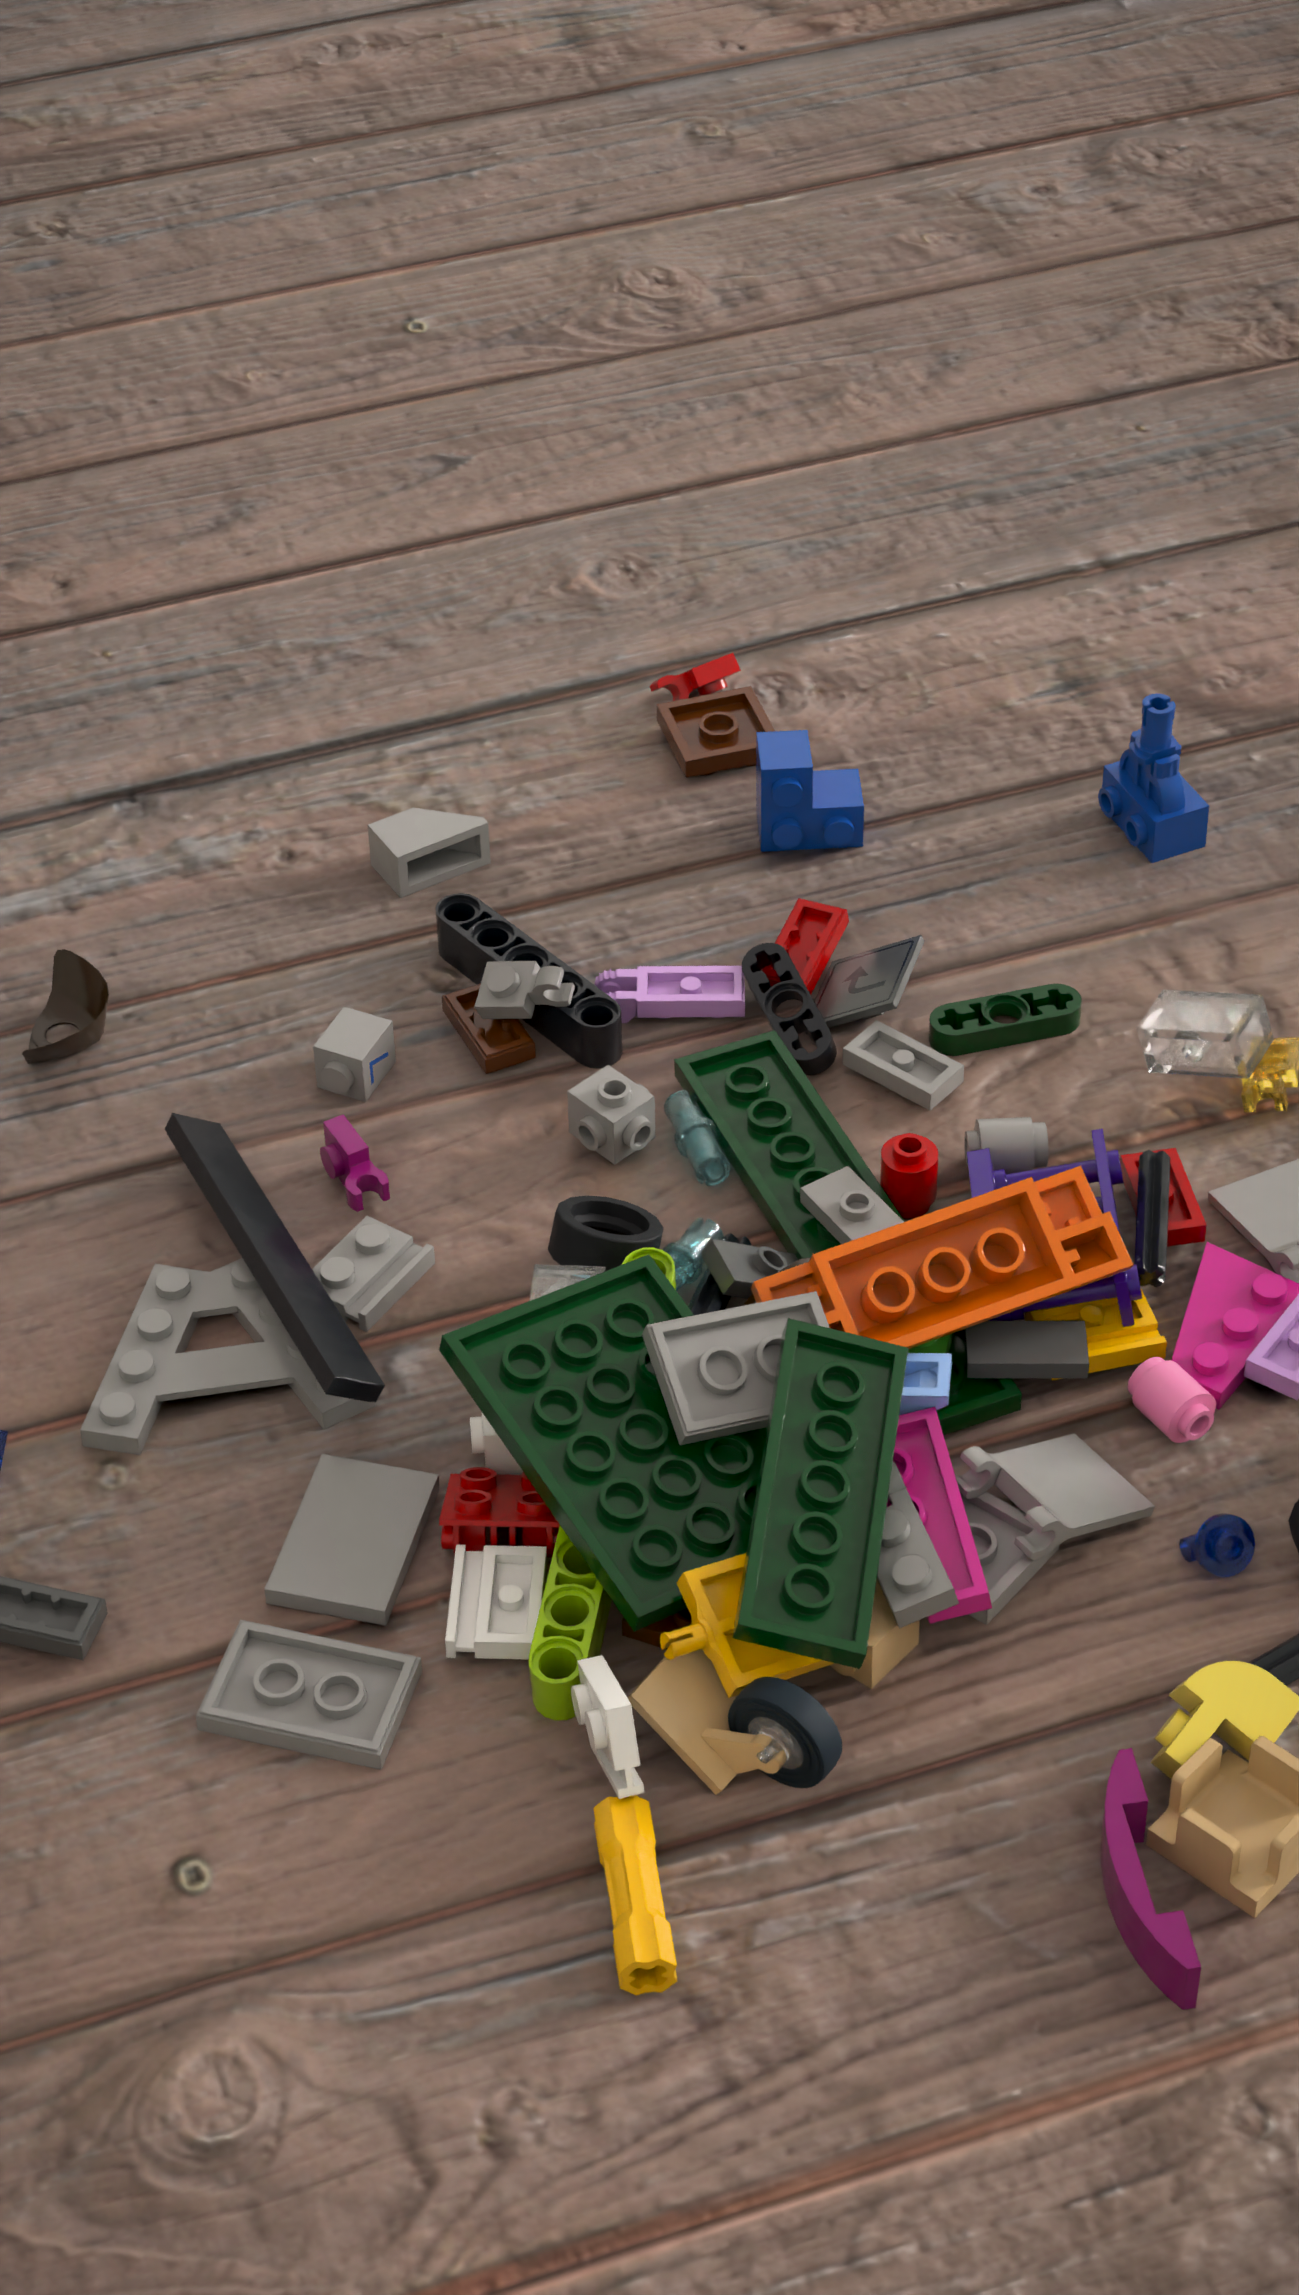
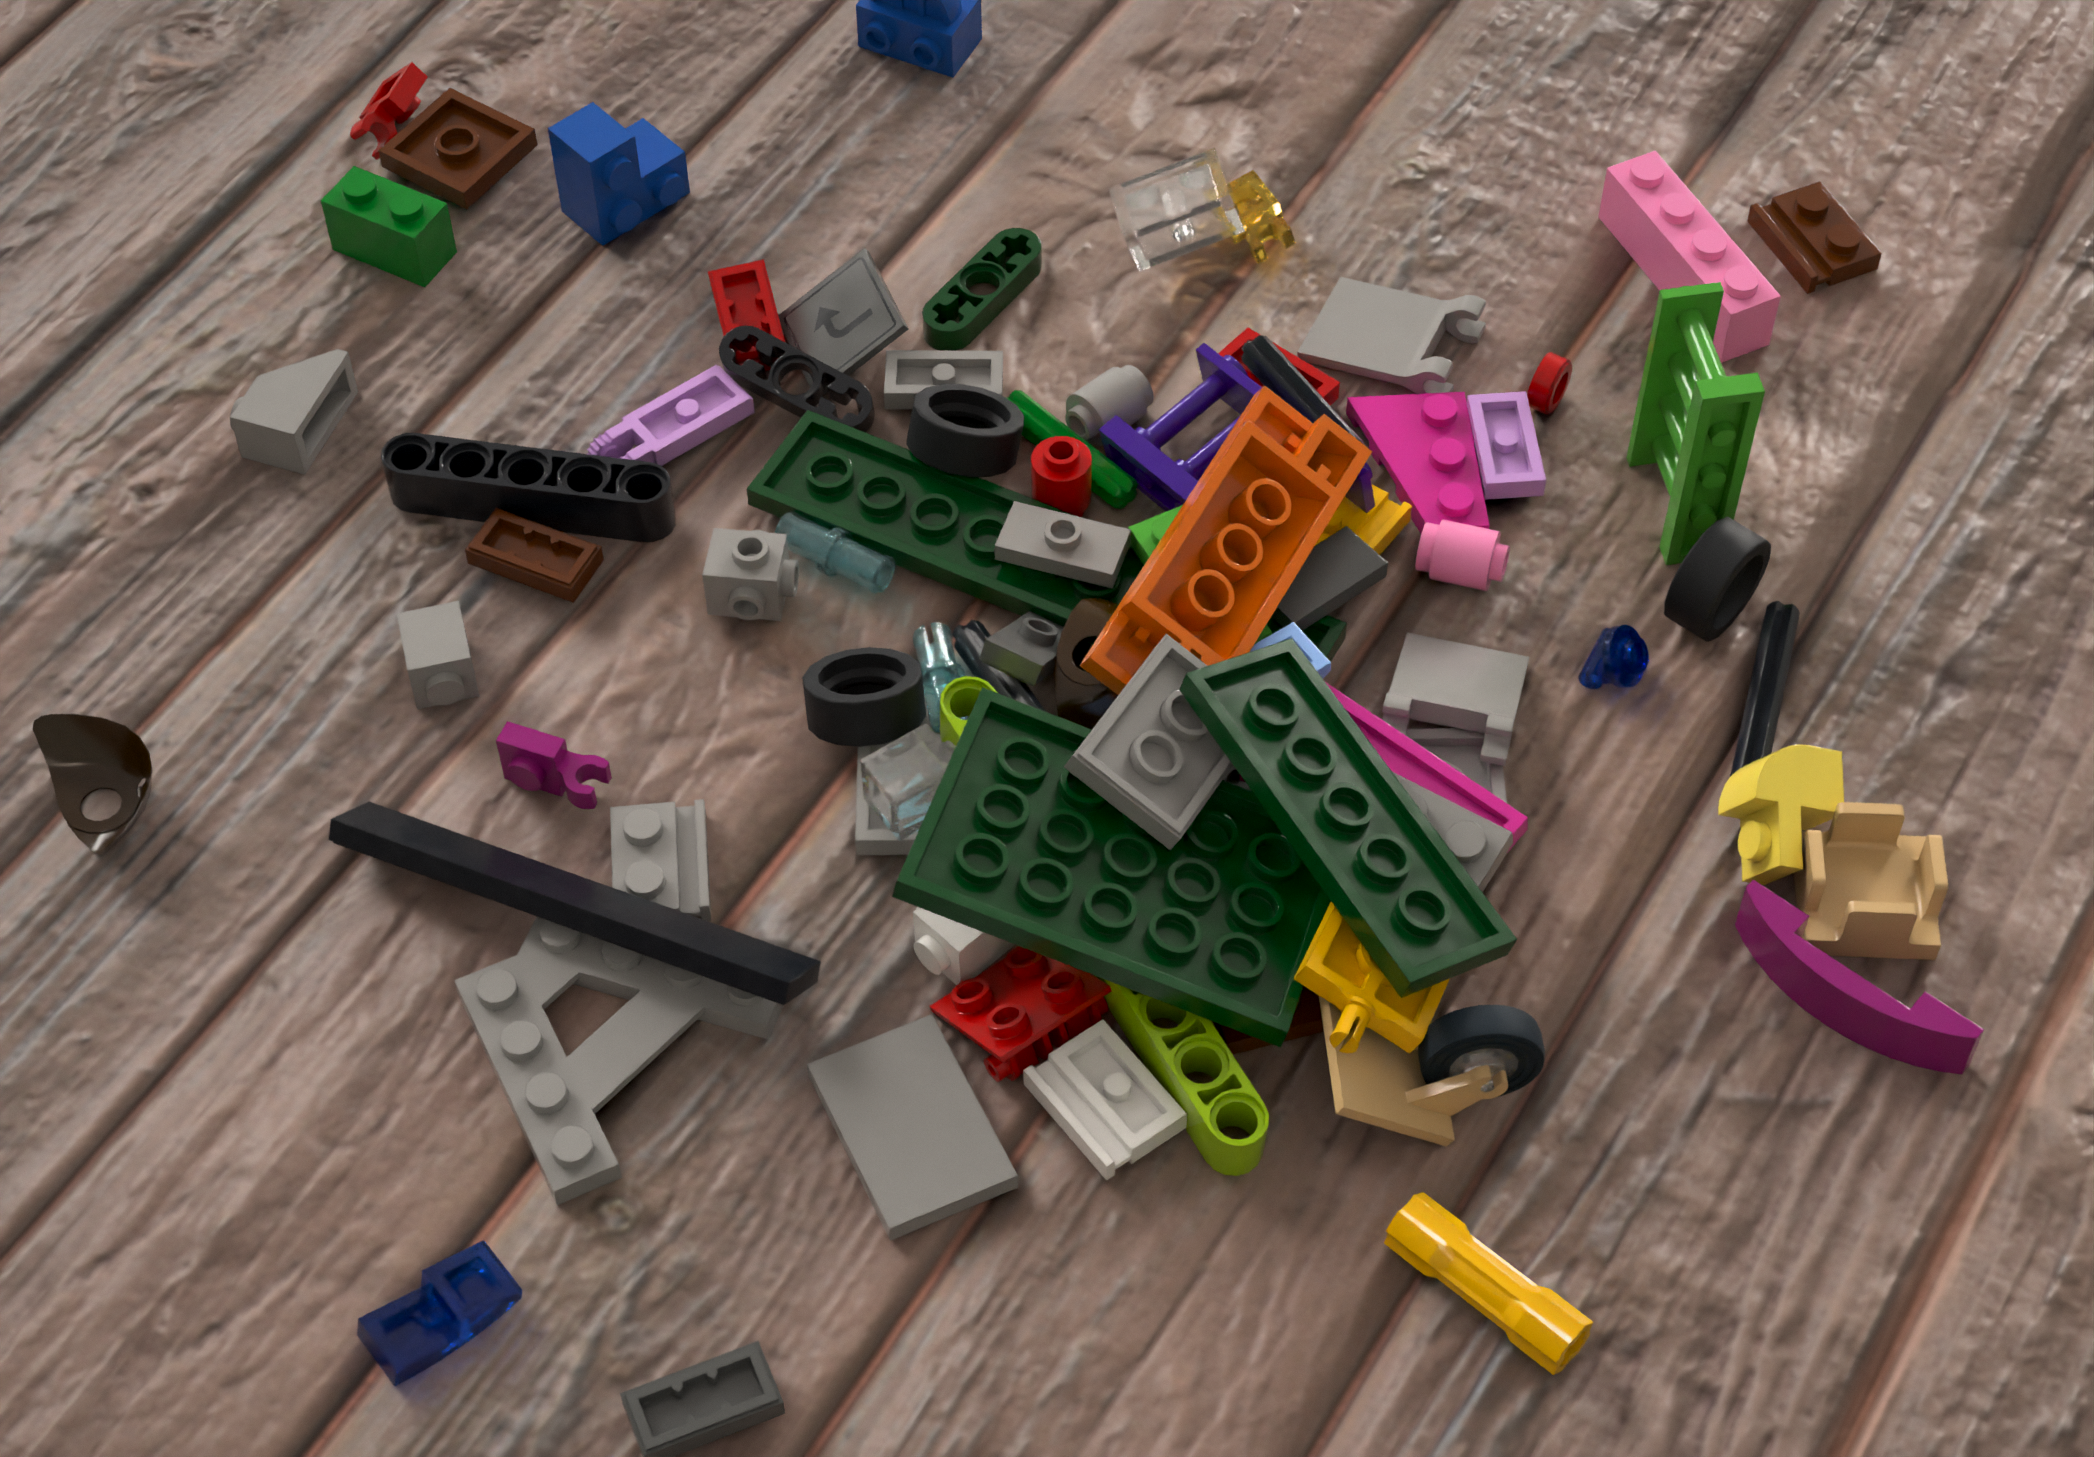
camera: 40 degrees left, 10 degrees up
(309, 1694) = (1021, 1299): light grey tile -> none
(515, 988) = (549, 503): light grey plate -> none
(609, 1724) = (1346, 1146): white plate -> none
(611, 758) = (389, 226): none -> green brick
(870, 1100) = (965, 430): none -> black tyre
(944, 1133) = (1108, 479): none -> green axle

